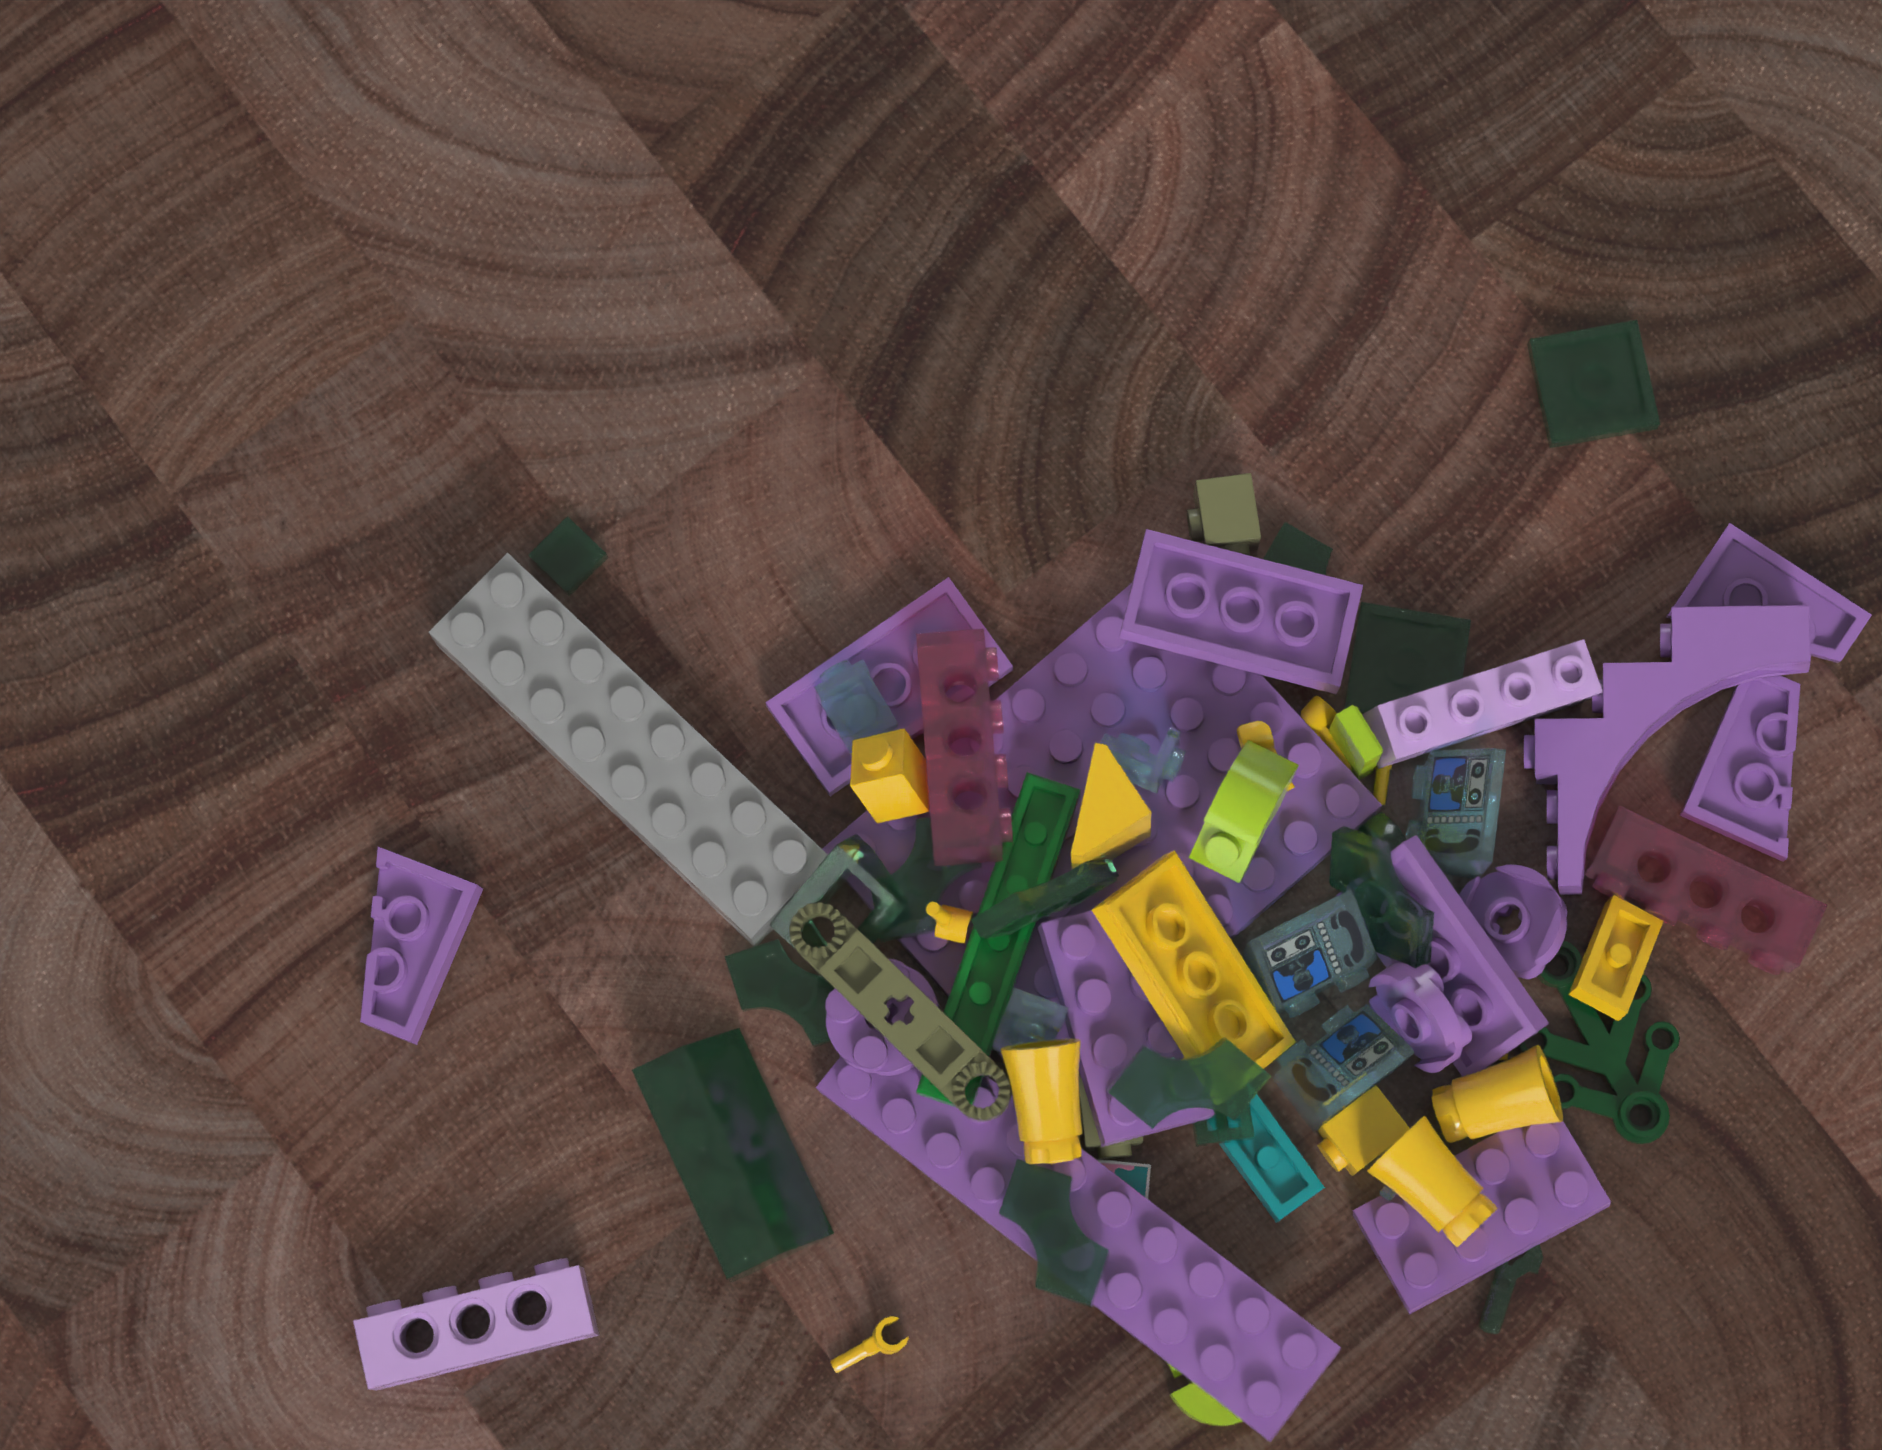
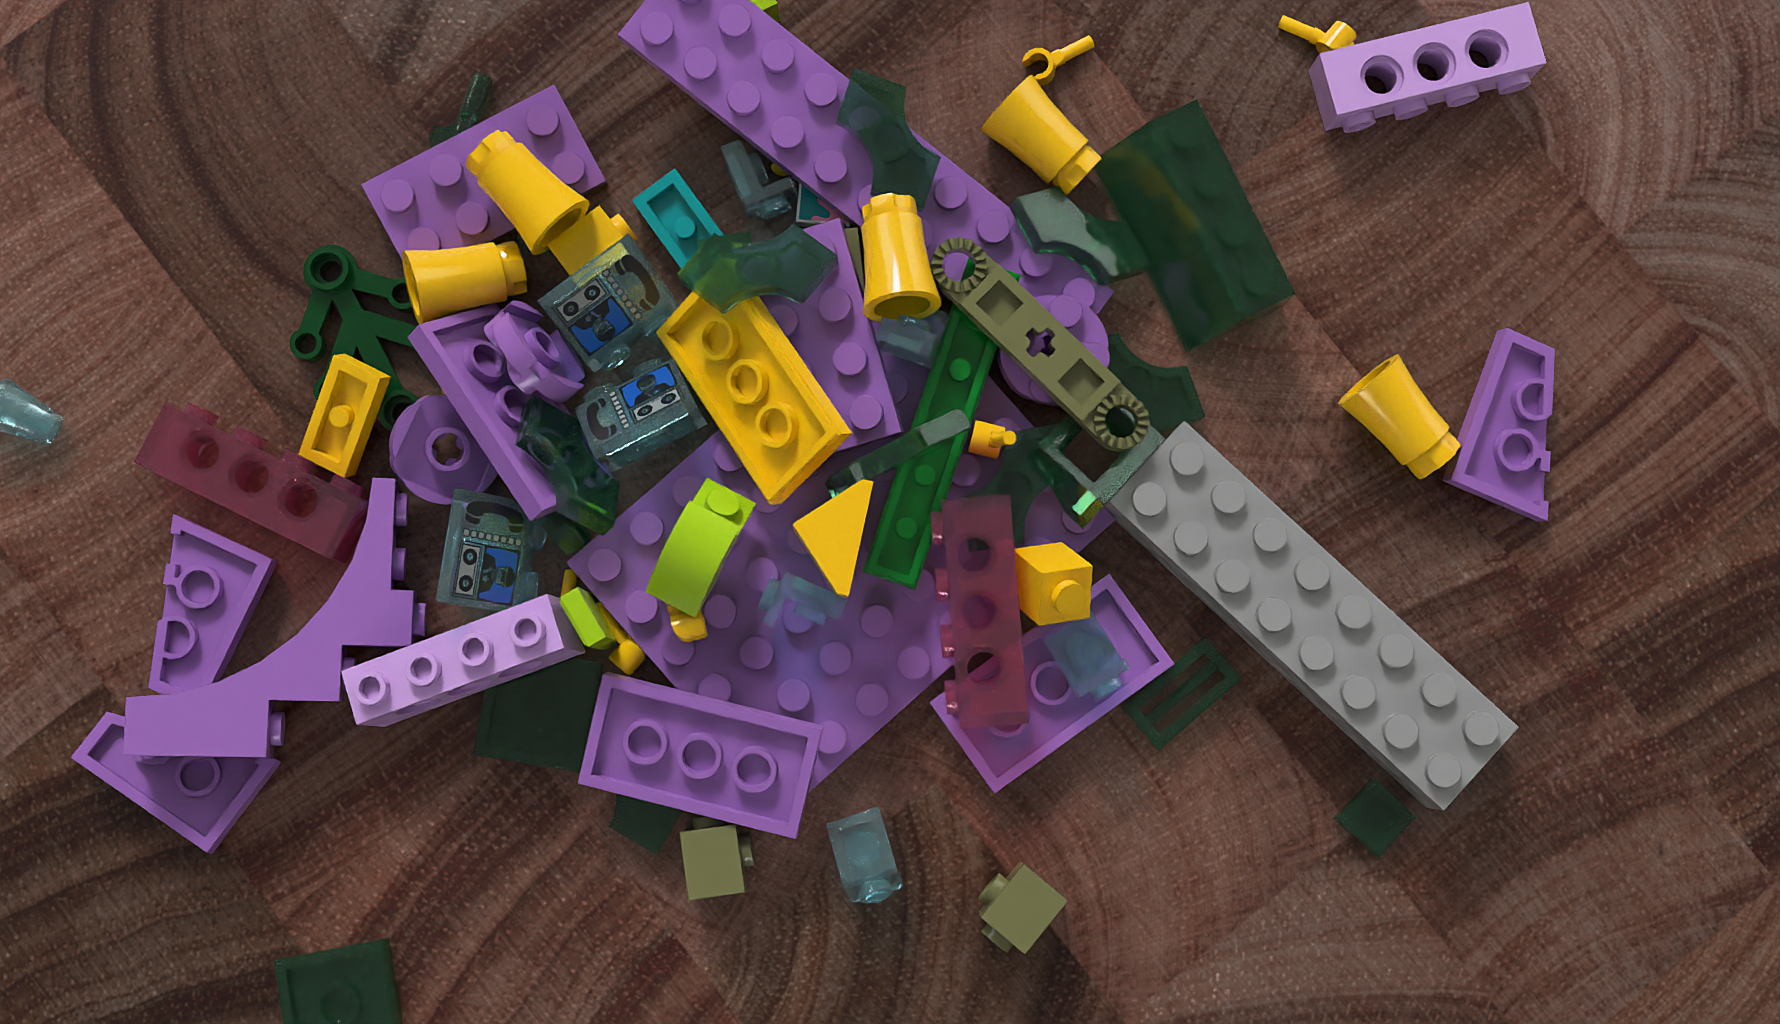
camera: 175 degrees right, 5 degrees up
(524, 951) = (1401, 417): none -> yellow plant
(572, 1360) = (1337, 37): none -> yellow hand
(745, 660) = (1145, 723): none -> clear green tile
(830, 1133) = (1098, 245): none -> clear green tile
(890, 1250) = (1041, 136): none -> yellow plant
(925, 469) = (1018, 908): none -> olive brick
(1078, 519) = (864, 857): none -> clear light blue bracket
(1202, 1211) = (747, 177): none -> clear light blue bracket

